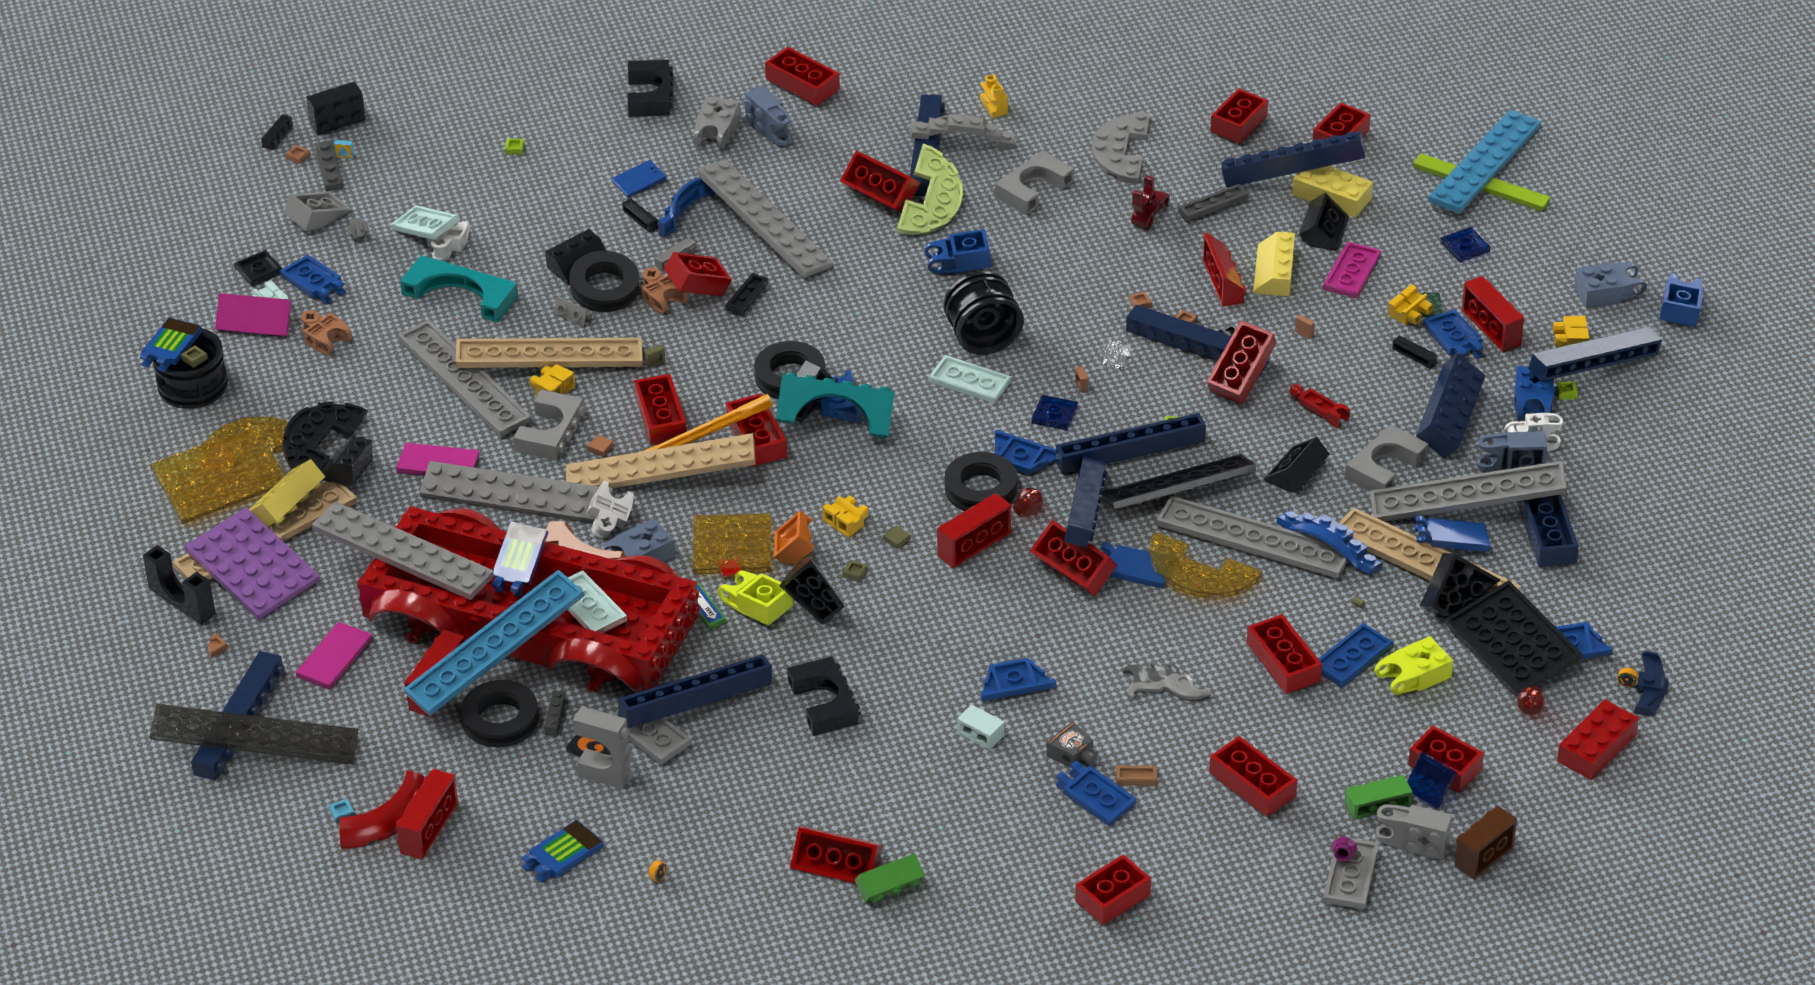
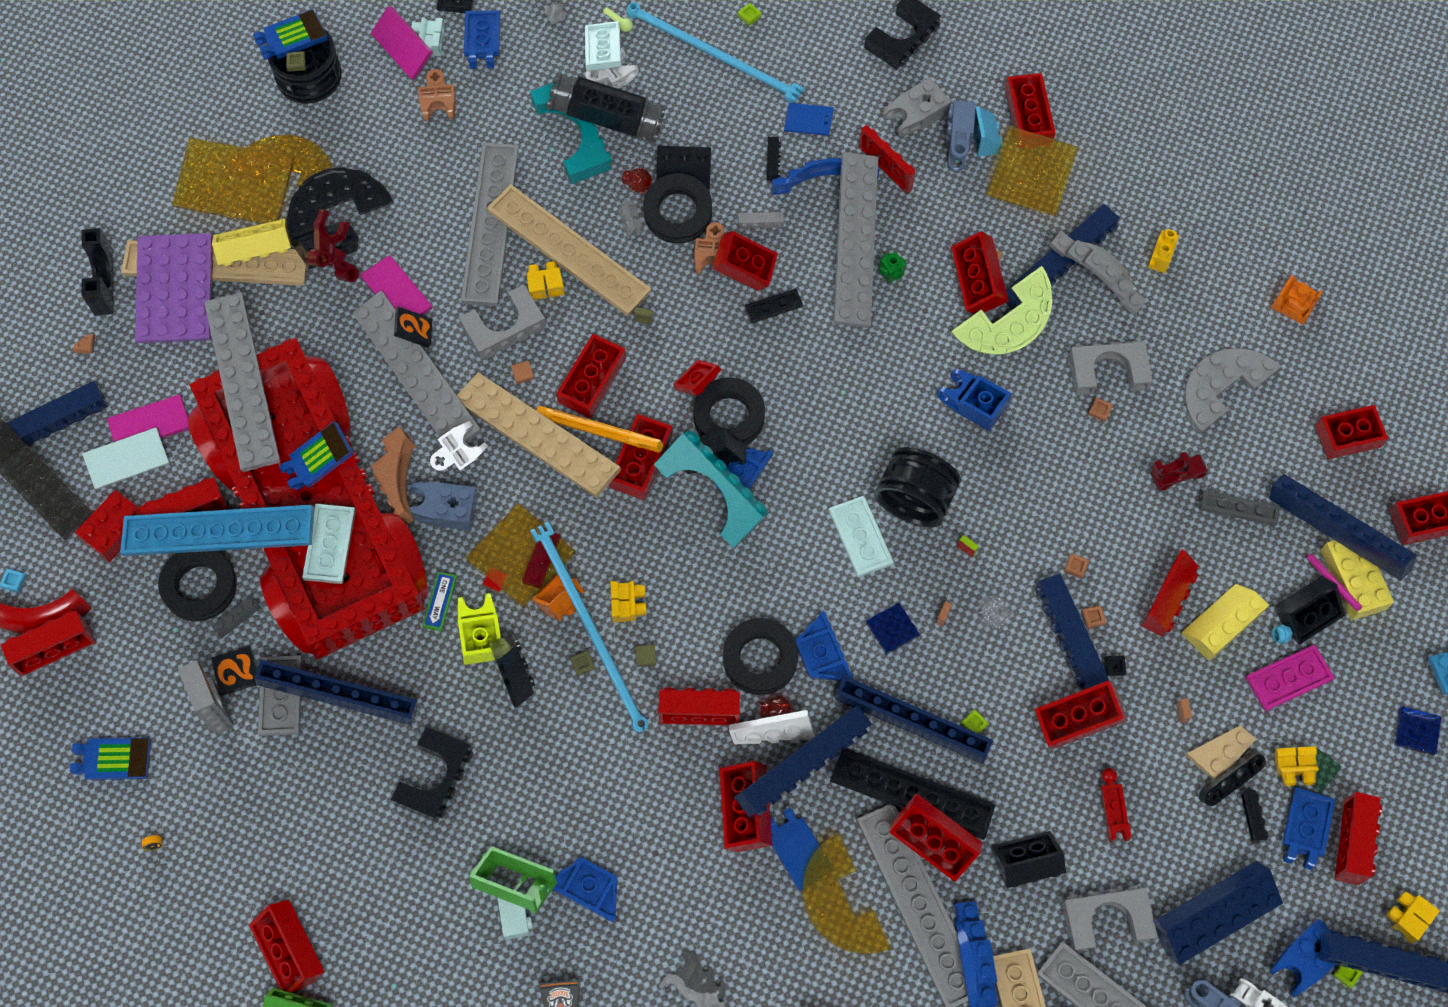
camera: 40 degrees right, 25 degrees up
(344, 683) = (125, 458): none -> light aqua tile
(365, 456) = (325, 252): none -> dark red piece
(386, 724) = (105, 526): none -> red brick
(407, 206) = (625, 24): none -> yellowish green bar
(478, 249) = (606, 106): none -> black brick
(483, 465) = (413, 327): none -> black tile
(551, 284) = (638, 179): none -> clear red piece
(607, 171) = (791, 92): none -> medium azure hinge
(742, 362) = (697, 377): none -> red plate
(747, 160) = (888, 160): none -> red plate
(748, 491) = (545, 538): none -> medium azure hinge
(753, 529) = (539, 564): none -> dark red plate
(793, 107) = (986, 133): none -> medium azure slope
(809, 219) = (892, 267): none -> green brick
(848, 105) = (1032, 171): none -> clear yellow plate
(957, 699) = (537, 893): none -> bright green door
(1045, 505) = (788, 726): none -> white wing
(1053, 334) = (968, 546): none -> tile
(1054, 210) = (1100, 409): none -> nougat tile
(1117, 71) = (1296, 300): none -> orange brick
(1223, 484) = (936, 837): none -> red brick
(1320, 248) = (1282, 634): none -> medium azure plate
(1335, 196) = (1326, 574): none -> dark pink bar
(1354, 335) = (1221, 752): none -> tan wing
(1375, 356) = (1231, 775): none -> black beam

